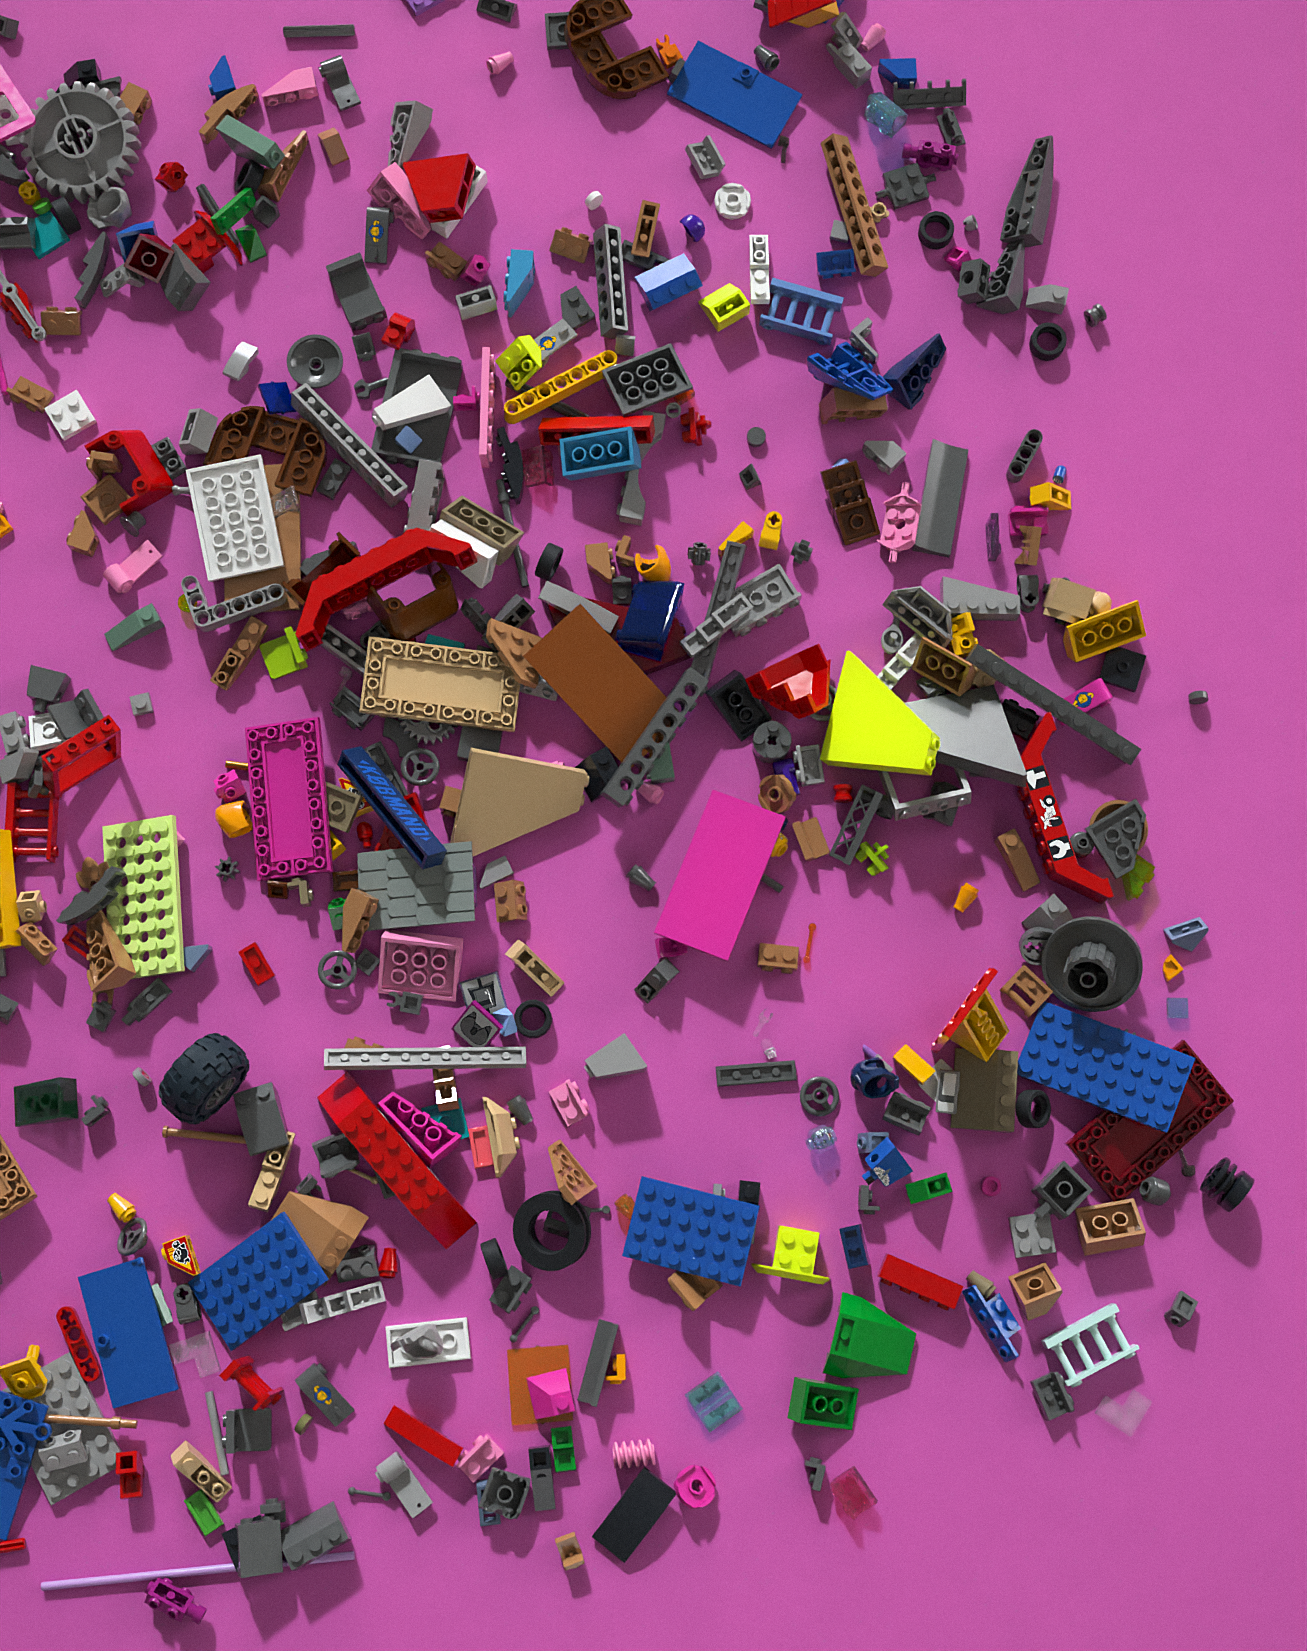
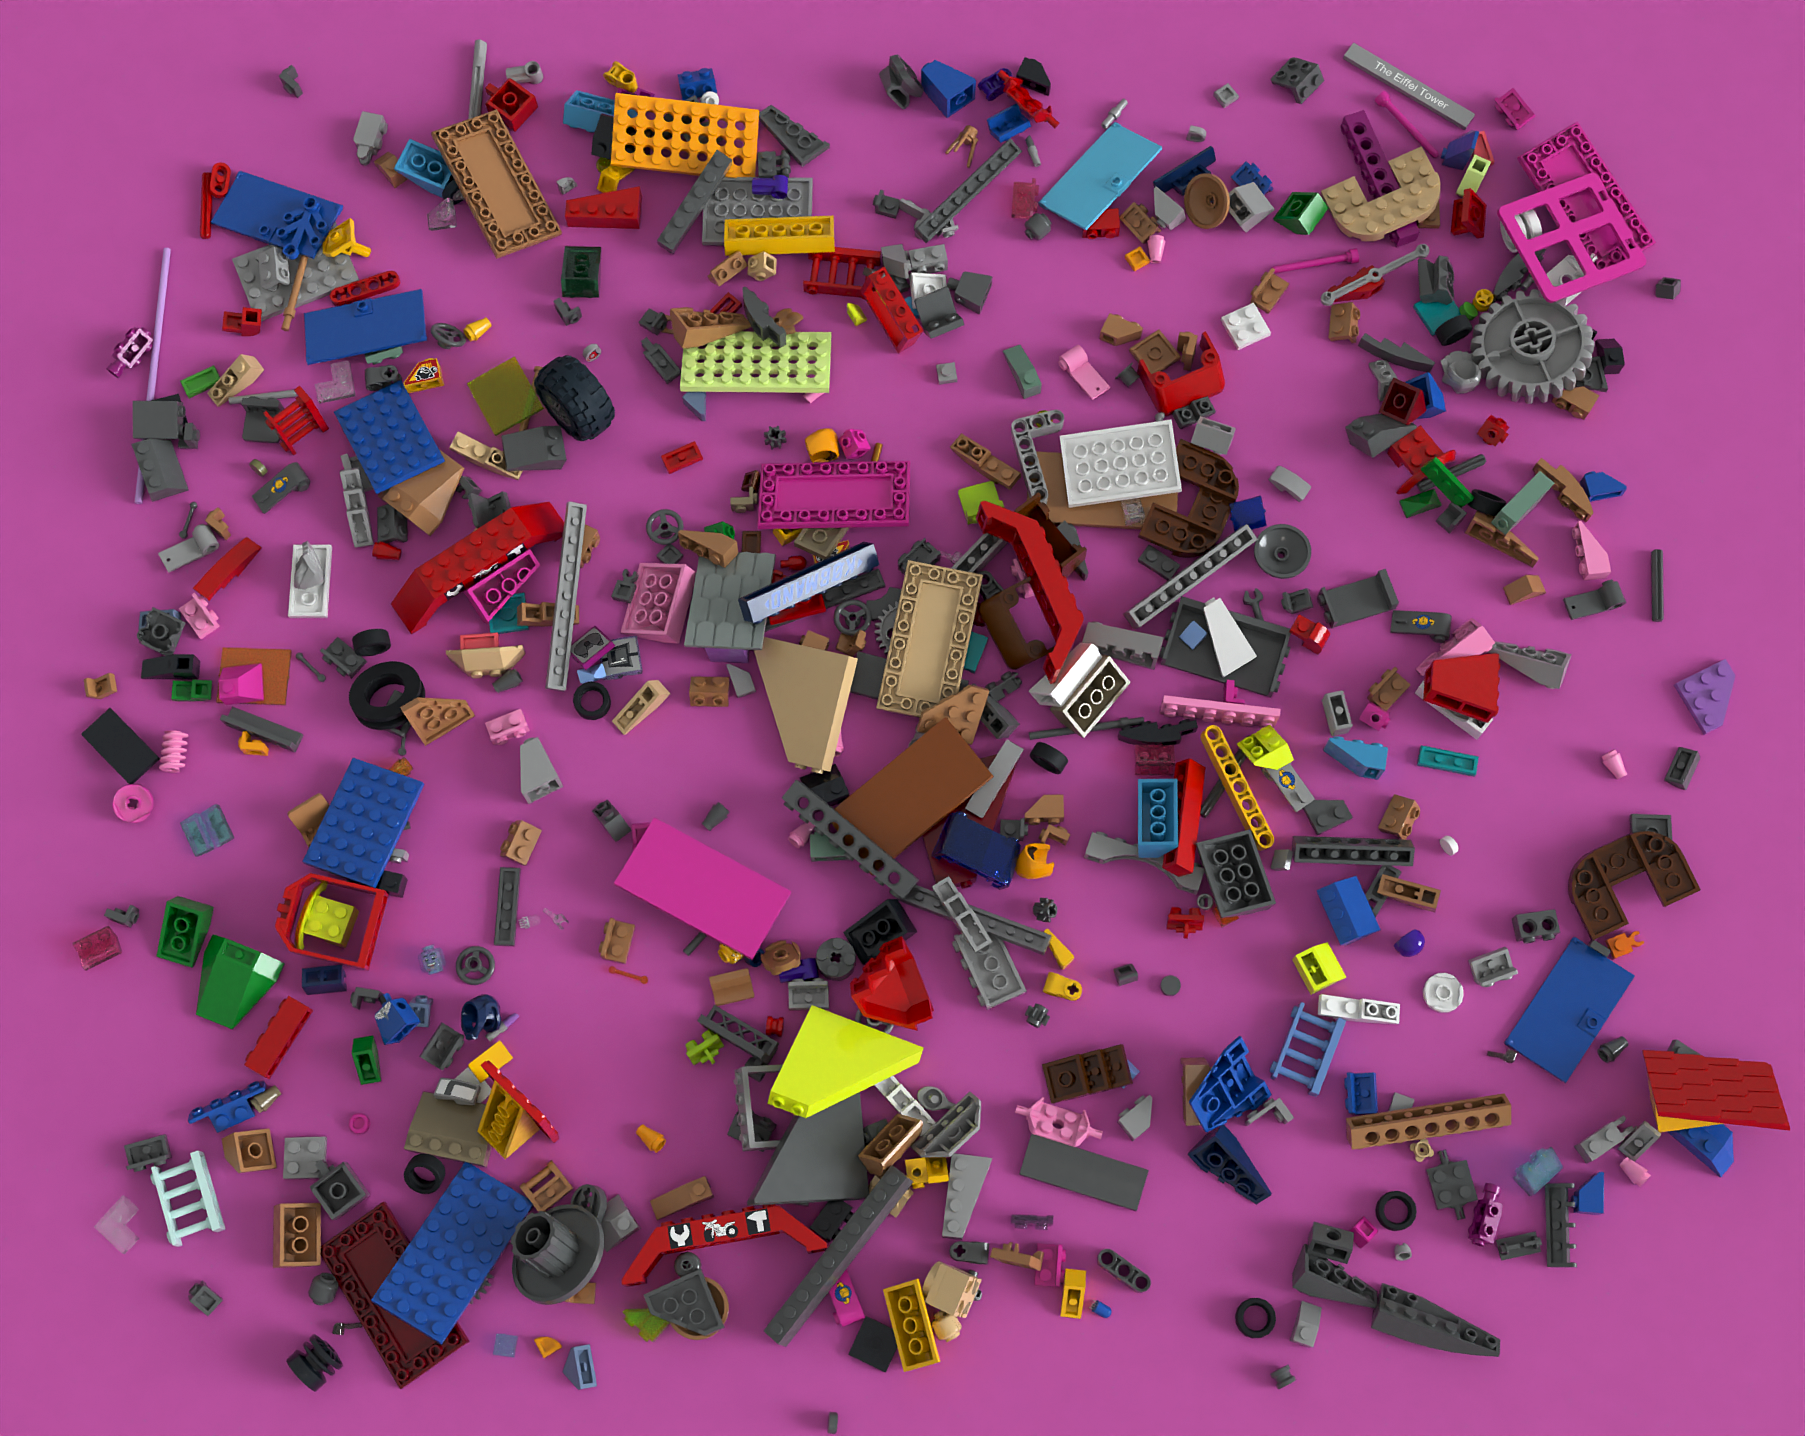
camera: 100 degrees right, 5 degrees down
(80, 804) = (856, 314): none -> neon yellow slope
(199, 1163) = (505, 396): none -> clear neon green piece
(376, 1455) = (215, 522): none -> medium nougat bracket
(448, 764) = (851, 645): none -> medium nougat bracket
(510, 206) = (1447, 761): none -> teal tile
(659, 124) = (1534, 921): none -> dark grey brick
(689, 1070) = (520, 842): none -> medium nougat bracket
(793, 1288) = (289, 910): none -> red container

